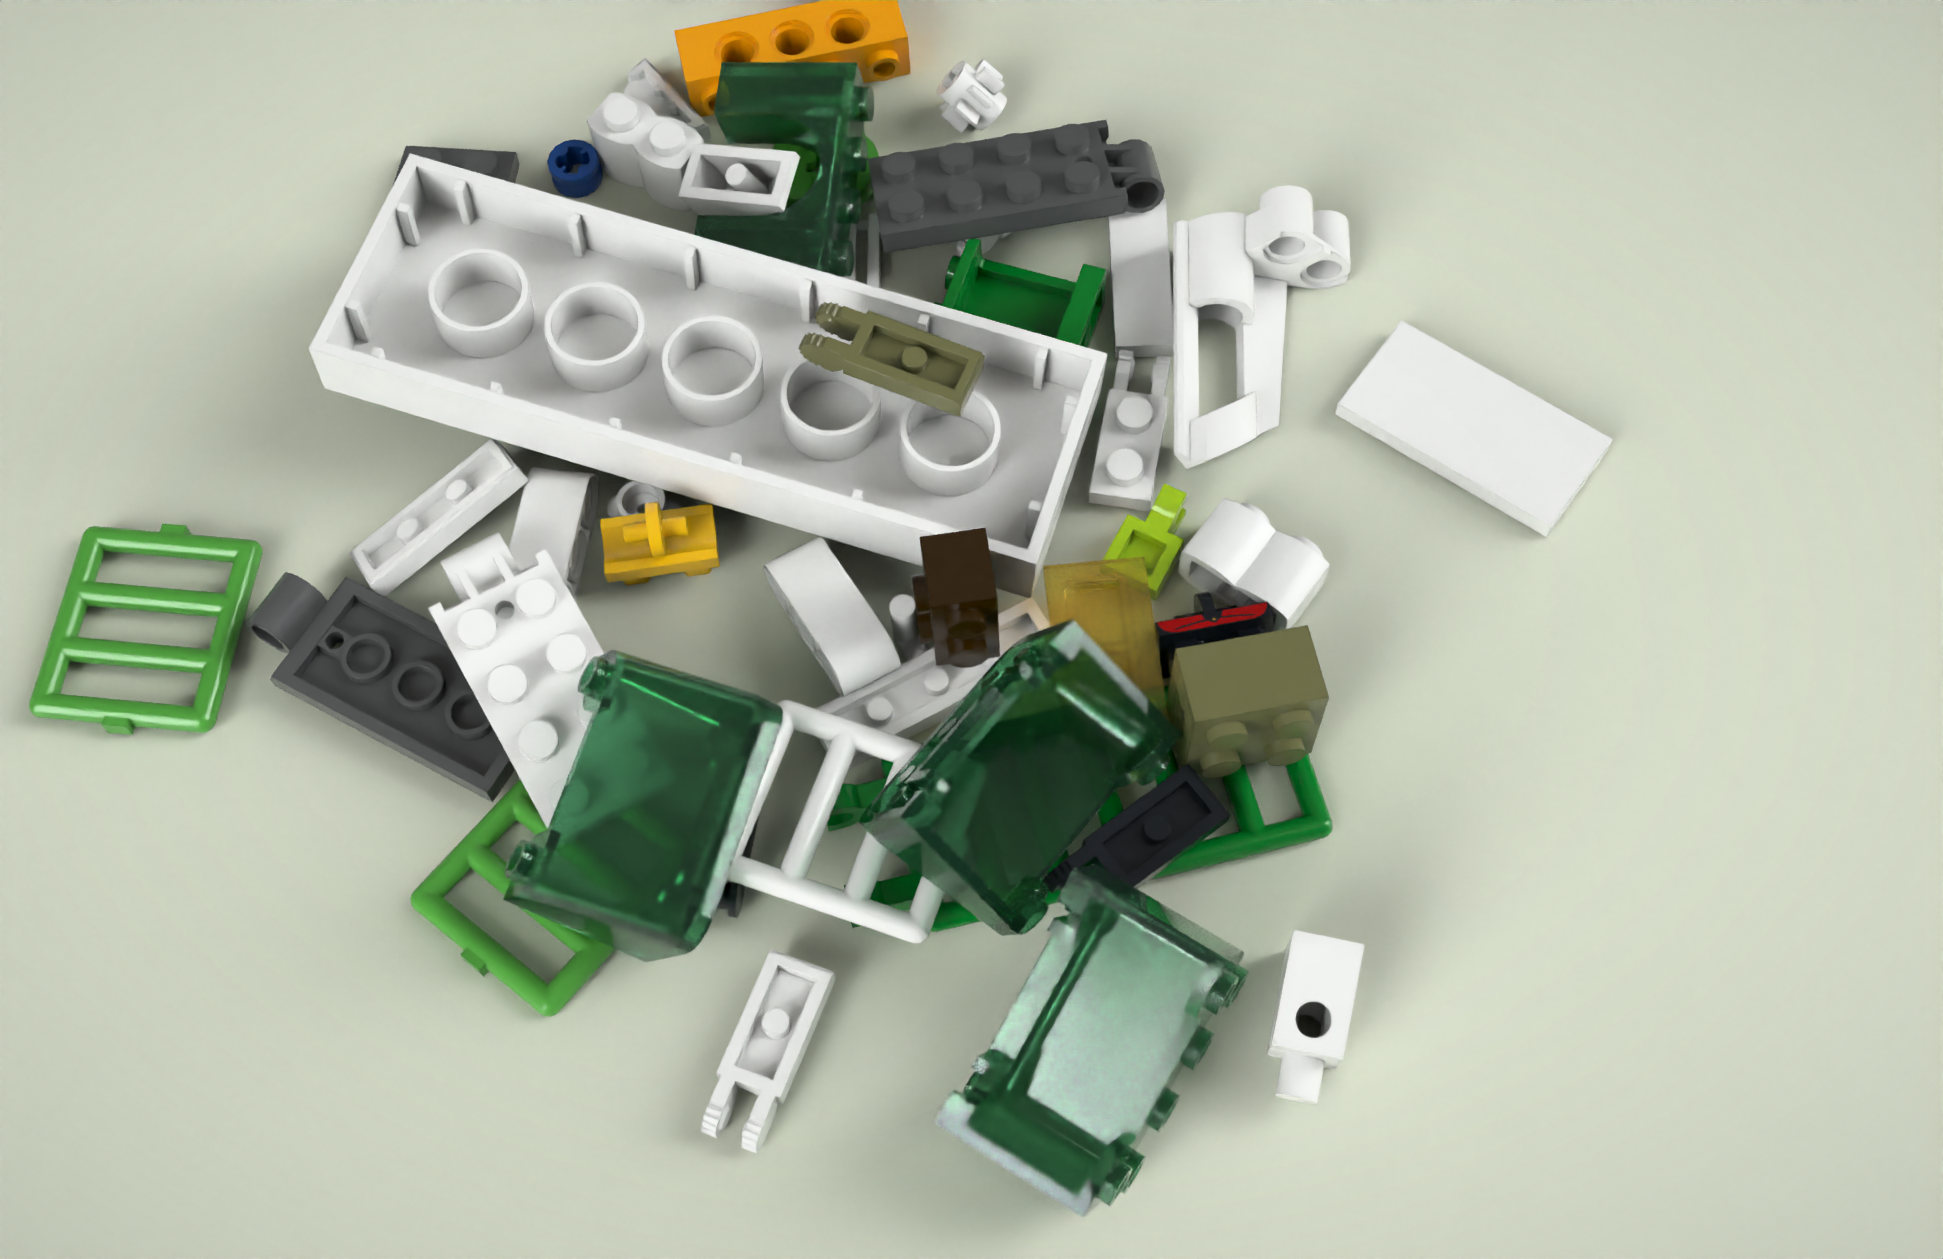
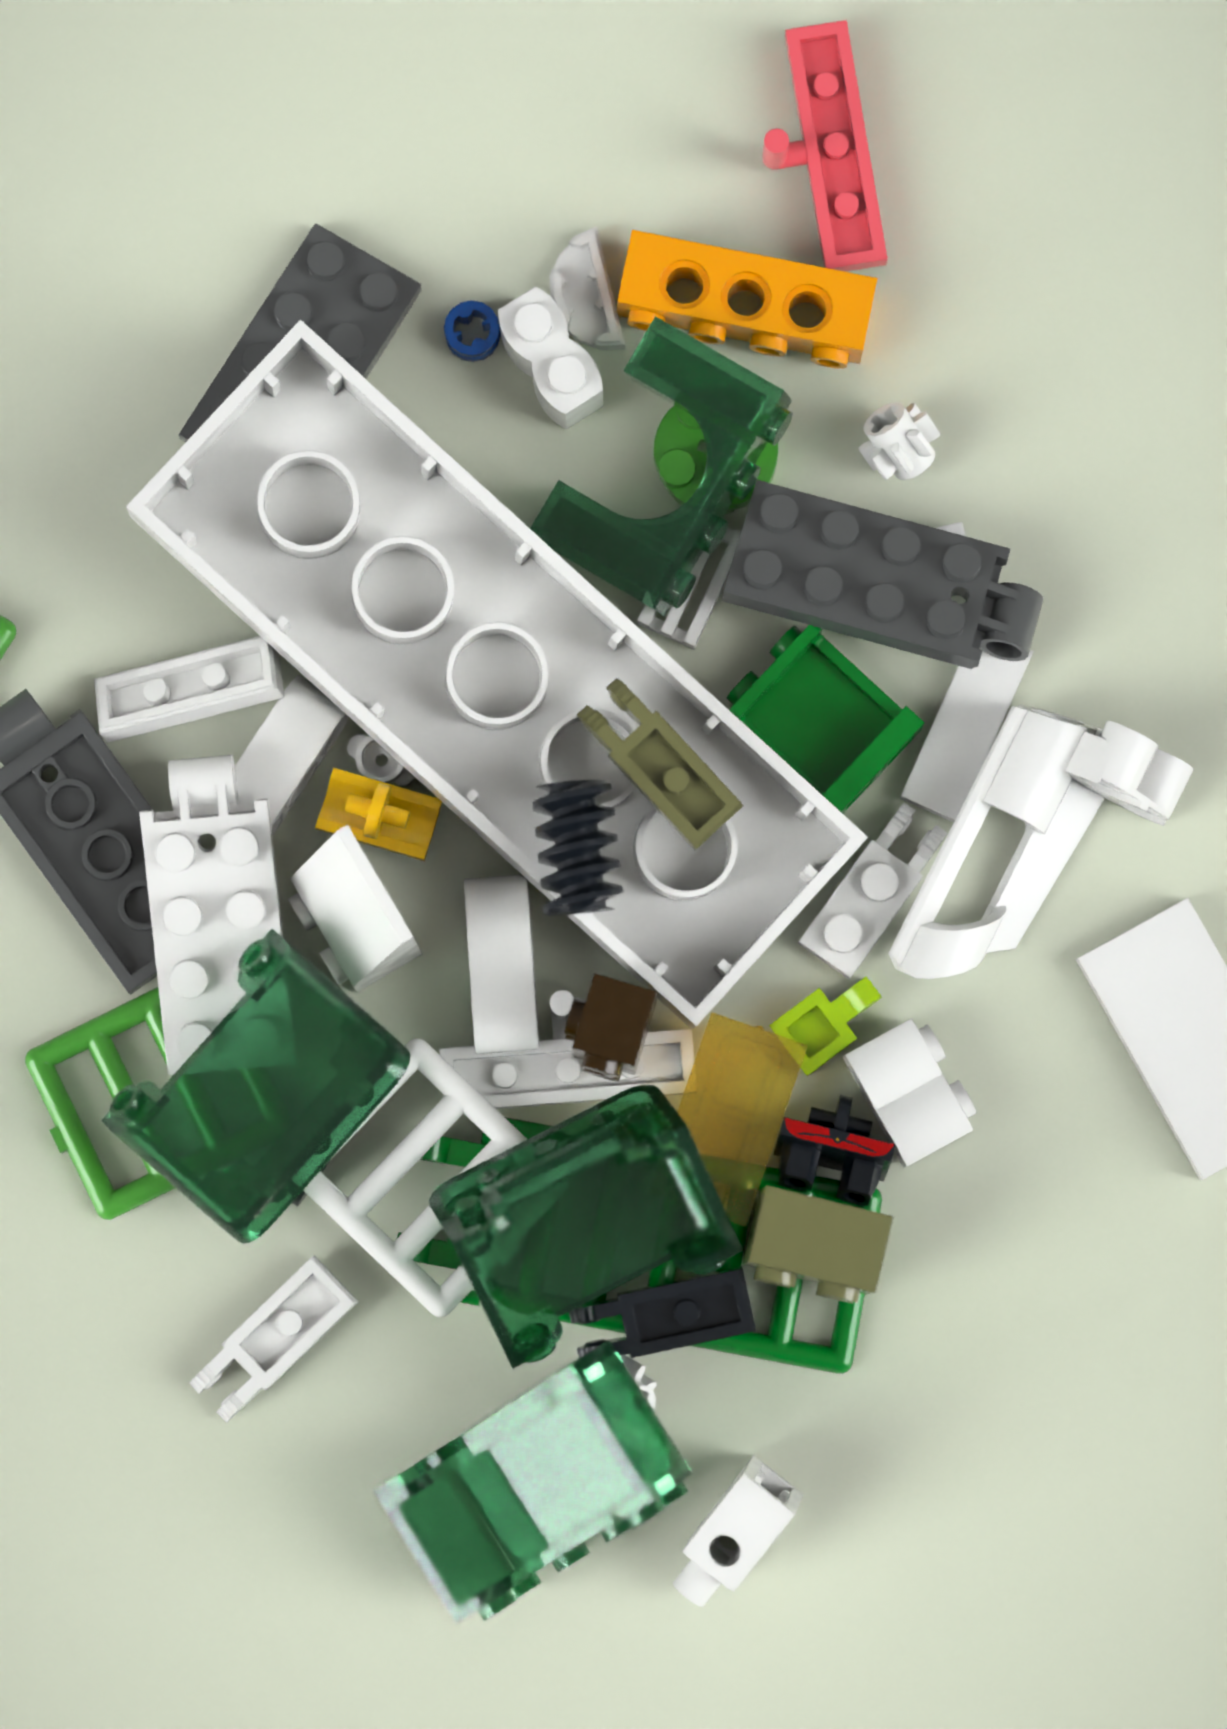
camera: 25 degrees right, 20 degrees up
(672, 602) = (352, 912): none -> white slope
(737, 180) = (617, 456): white slope -> none
(851, 446) = (576, 847): none -> black piece

